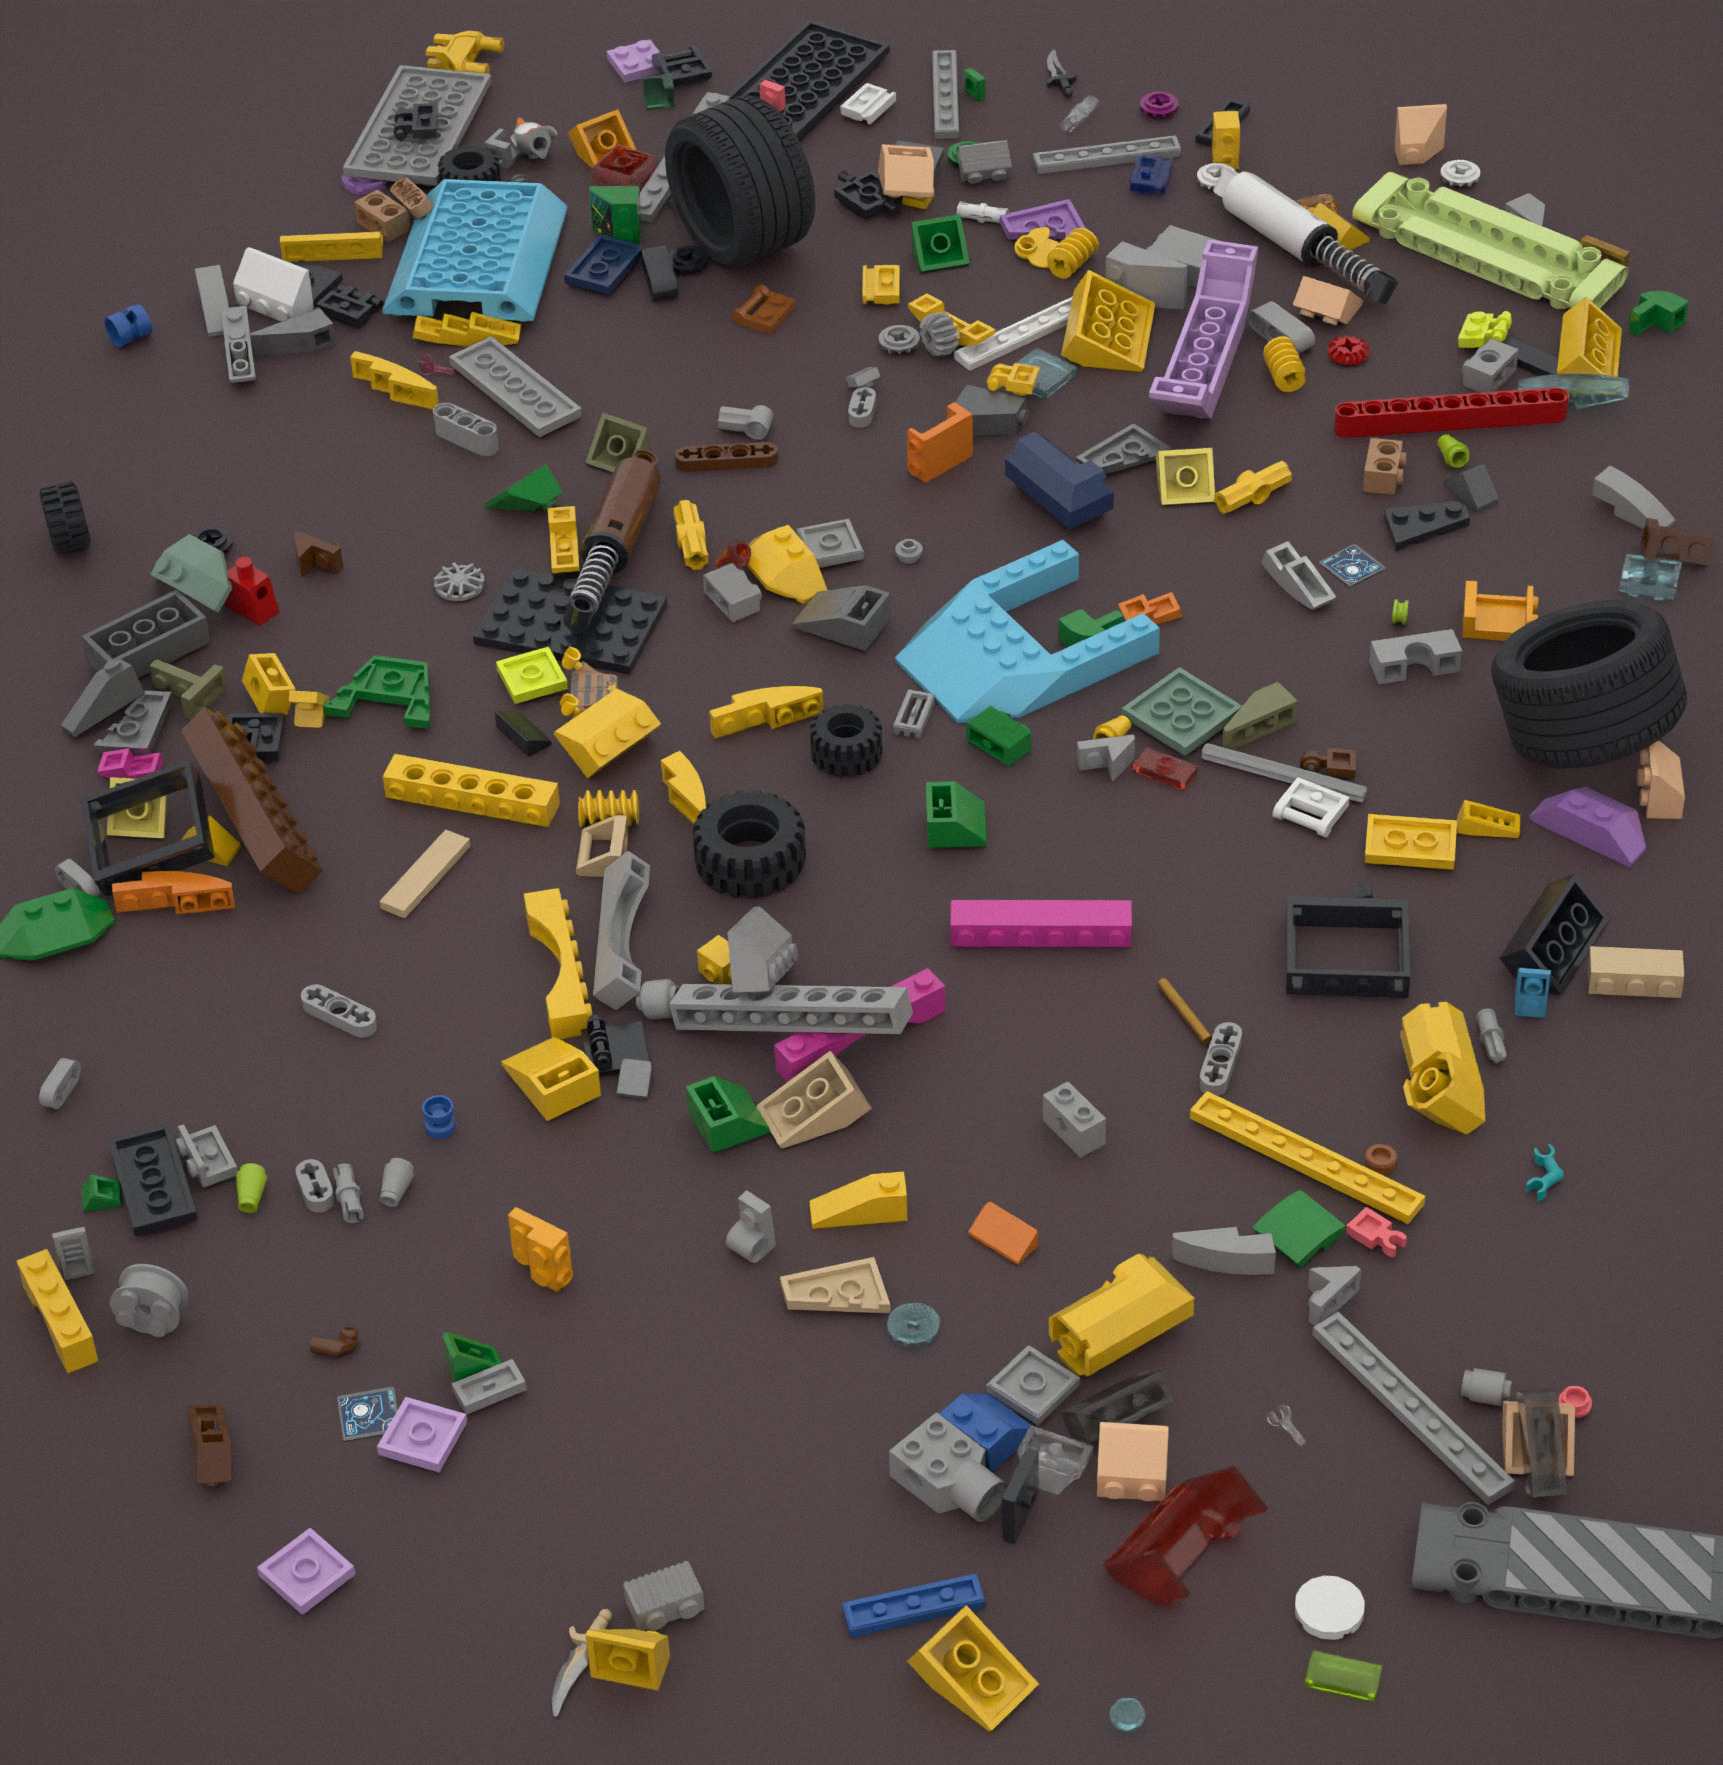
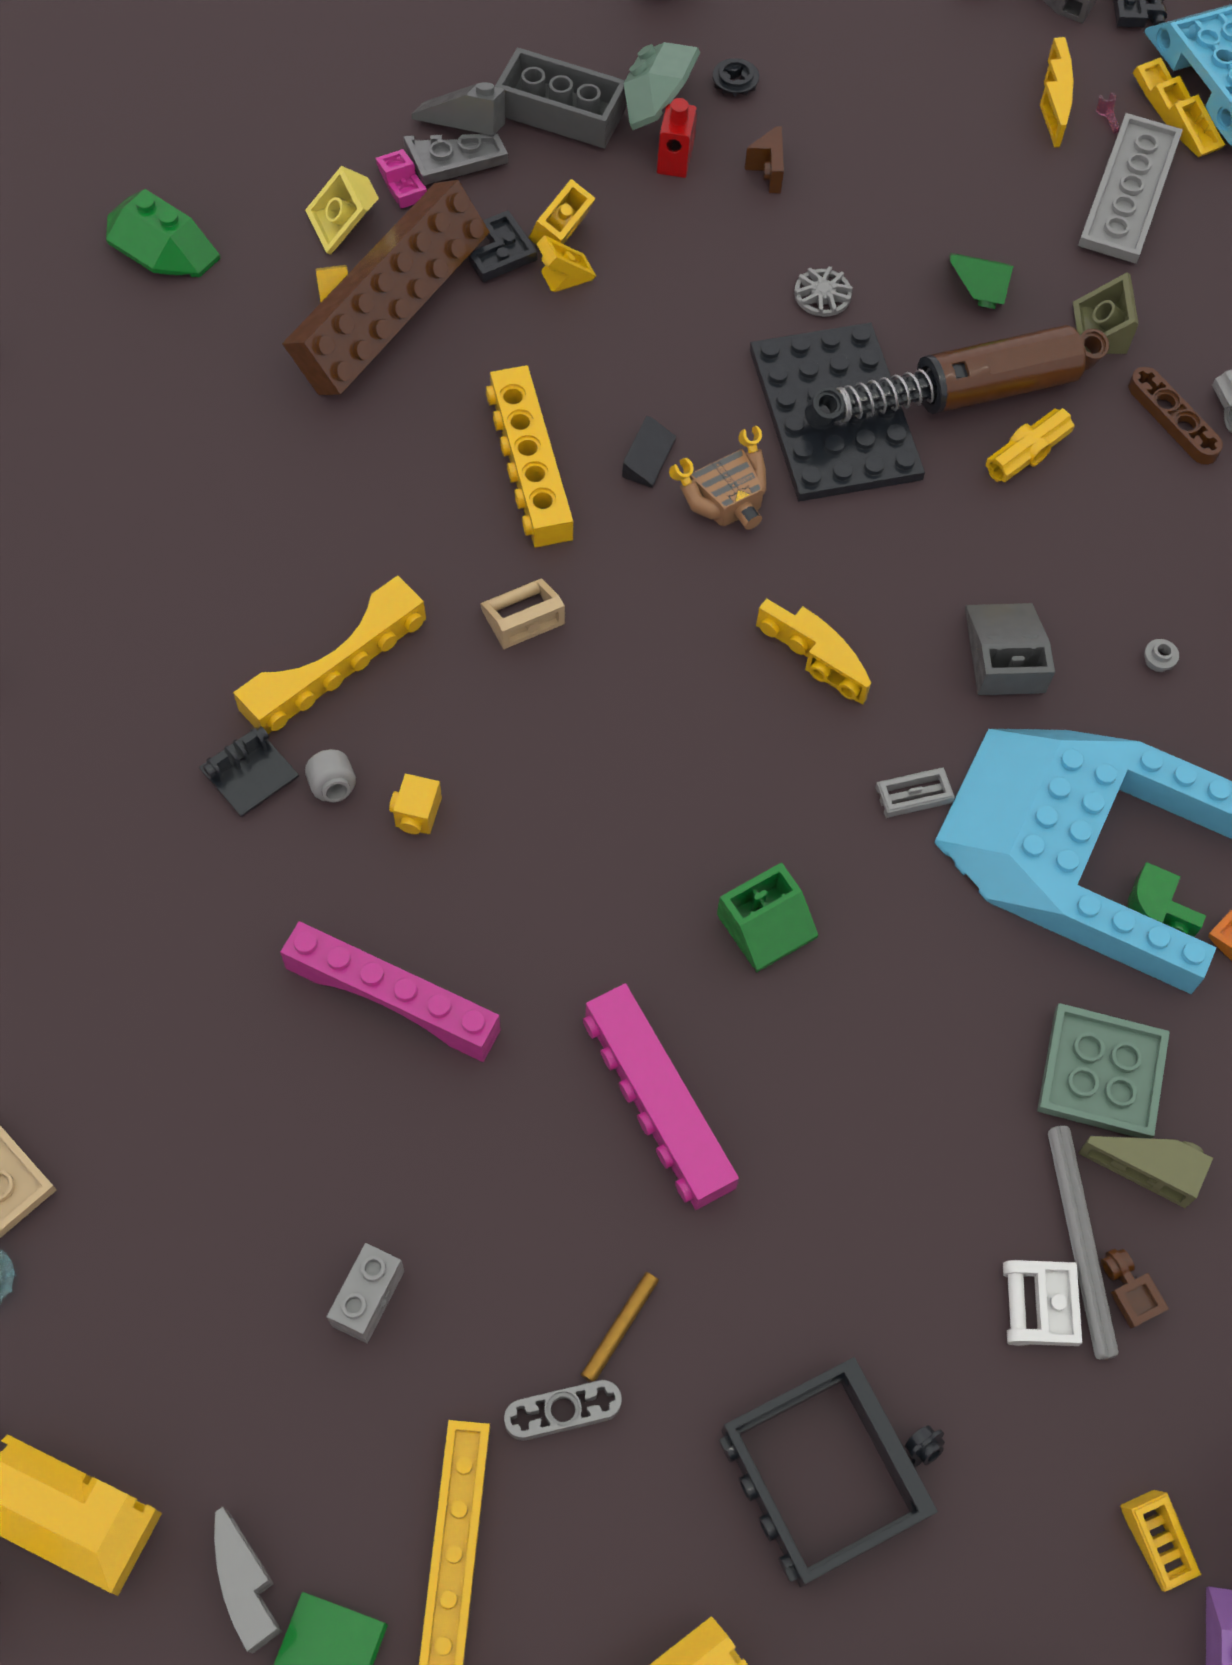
camera: 55 degrees right, 20 degrees up
(75, 877) = (224, 219): light grey beam -> none
(136, 792) = (277, 200): black window -> none
(177, 889) = (249, 296): orange slope -> none
(192, 689) = (523, 174): olive bracket -> none
(346, 1021) = (169, 496): light grey beam -> none
(387, 681) = (640, 311): green wing -> none
(425, 874) = (400, 479): tan tile -> none
(439, 1117) = (64, 668): blue wheel -> none
(465, 429) = (1035, 181): light grey beam -> none
(531, 675) = (725, 414): neon yellow plate -> none
(554, 1076) = (168, 735): yellow slope -> none
(563, 539) = (961, 331): yellow slope -> none
(605, 808) = (575, 585): yellow piece -> none
(606, 730) = (677, 522): yellow slope -> none
(623, 887) = (356, 708): light grey arch -> none
(635, 1079) = (210, 814): flat silver slope -> none
(683, 785) = (650, 640): yellow slope -> none
(723, 1113) = (193, 924): green slope -> none
(732, 592) = (970, 525): light grey brick -> none
(737, 553) = (1025, 502): clear red cone -> none
(749, 869) = (603, 700): black tyre -> none
(754, 1232) = (31, 1042): light grey plate -> none
(759, 952) = (405, 834): light grey slope -> none
(786, 565) = (1044, 551): yellow wedge -> none
(792, 1009) = (349, 918): light grey brick -> none
(814, 1103) = (257, 1005): tan slope -> none
(832, 542) = (1113, 576): light grey plate -> none
(846, 740) = (818, 724): black tyre -> none
(865, 1201) = (134, 1130): yellow slope -> none
(999, 735) = (930, 897): green brick -> none
(1004, 1233) = (161, 1306): orange slope -> none
(1110, 752) = (981, 1032): light grey slope -> none
(1113, 728) = (1016, 1012): yellow cone -> none
(1165, 768) = (1001, 1100): clear red plate -> none
(1411, 841) = (1059, 1458): yellow plate -> none

